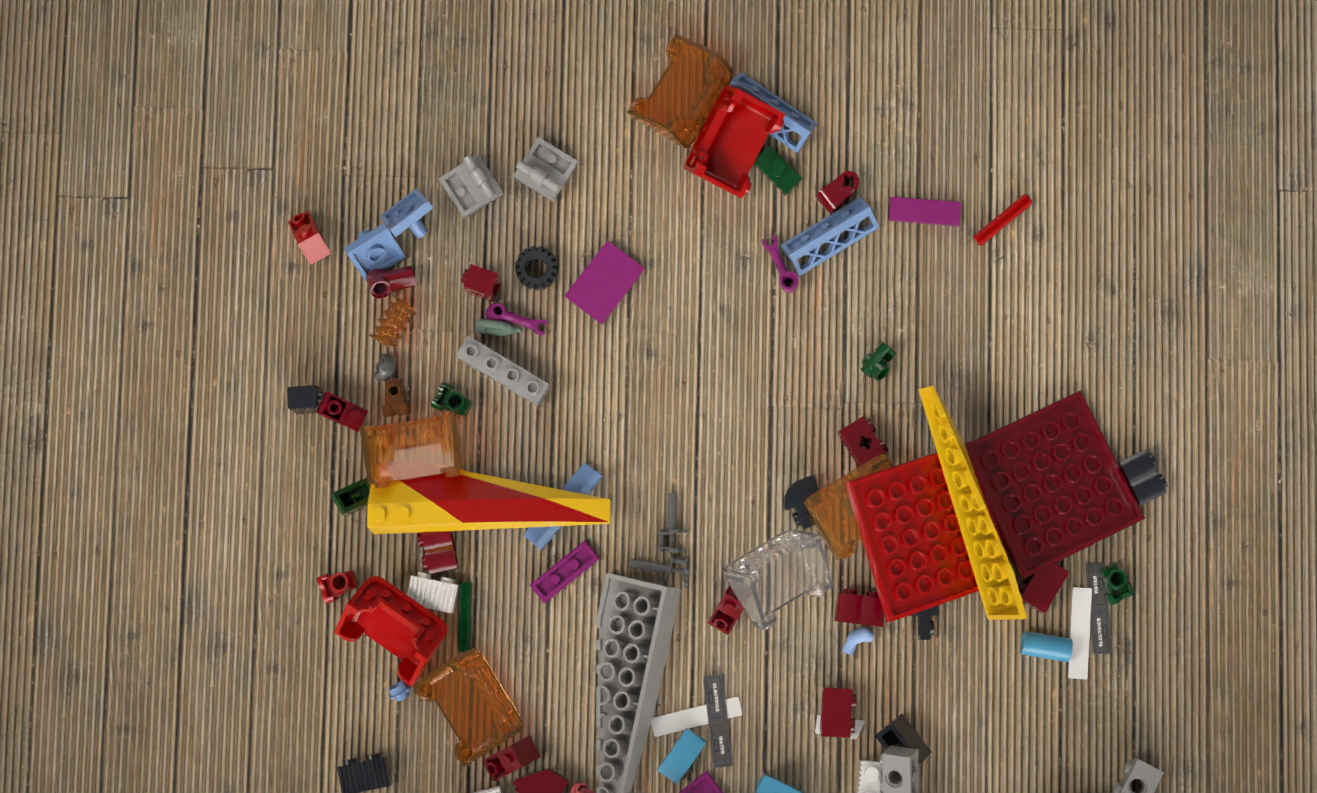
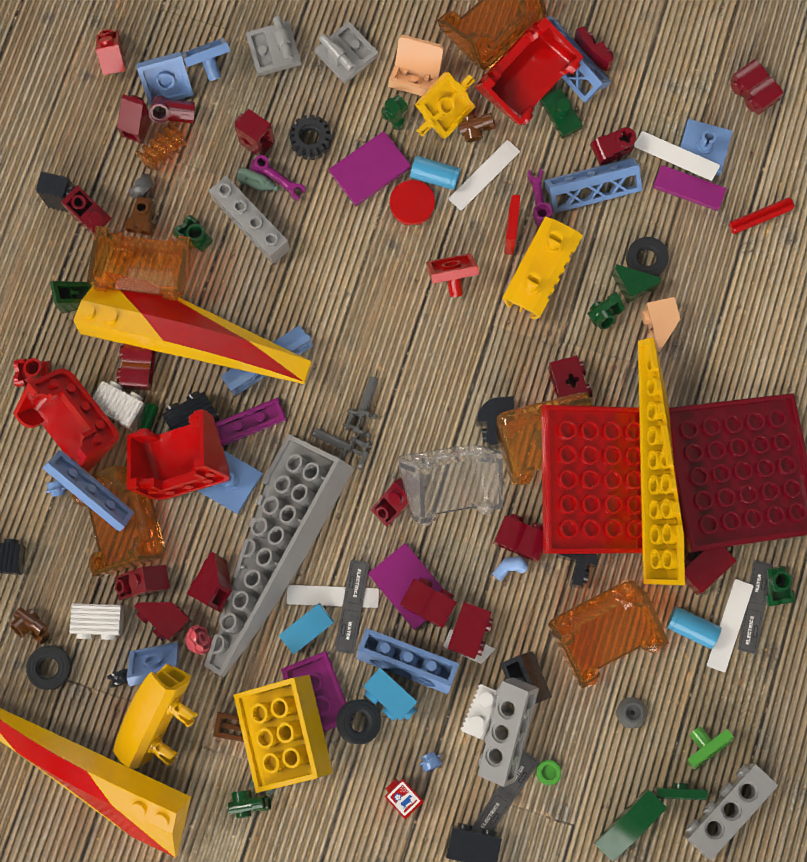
camera: 15 degrees right, 5 degrees down
(356, 302) = (133, 118): none -> dark red slope
(435, 687) = (89, 490): none -> medium blue fence
(506, 583) = (178, 414): none -> black brick
(509, 632) = (177, 459): none -> red windscreen
(564, 636) = (237, 490): none -> medium blue tile
(579, 739) = (212, 583): none -> dark red slope
(612, 219) = (393, 111): none -> dark green plate
(621, 167) = (416, 65): none -> light nougat bracket
(657, 305) = (412, 202): none -> red tile
(661, 198) = (445, 105): none -> yellow plate
(671, 269) = (435, 172): none -> dark azure pin
(694, 211) = (472, 127): none -> reddish brown plate
(718, 366) = (452, 270): none -> red tile
(719, 255) = (484, 175): none -> white sticker
(763, 303) = (512, 224): none -> red tile
(767, 686) = (395, 576): none -> magenta tile
(787, 758) = (407, 661): none -> medium blue brick
(790, 698) = (428, 603): none -> dark red brick
(798, 99) = (597, 52): none -> dark red slope
(804, 338) = (542, 267): none -> yellow piece
(892, 305) = (653, 245): none -> black tyre
(897, 325) = (634, 282): none -> dark green slope
(903, 183) = (676, 155): none -> white sticker
(927, 165) = (707, 141): none -> medium blue tile
(935, 356) = (661, 320): none -> light nougat slope
(962, 90) = (756, 87): none -> dark red brick
(965, 673) = (607, 630): none -> clear orange windscreen
(1002, 743) = (626, 718): none -> dark grey plate
(1089, 754) = (707, 747): none -> bright green tile

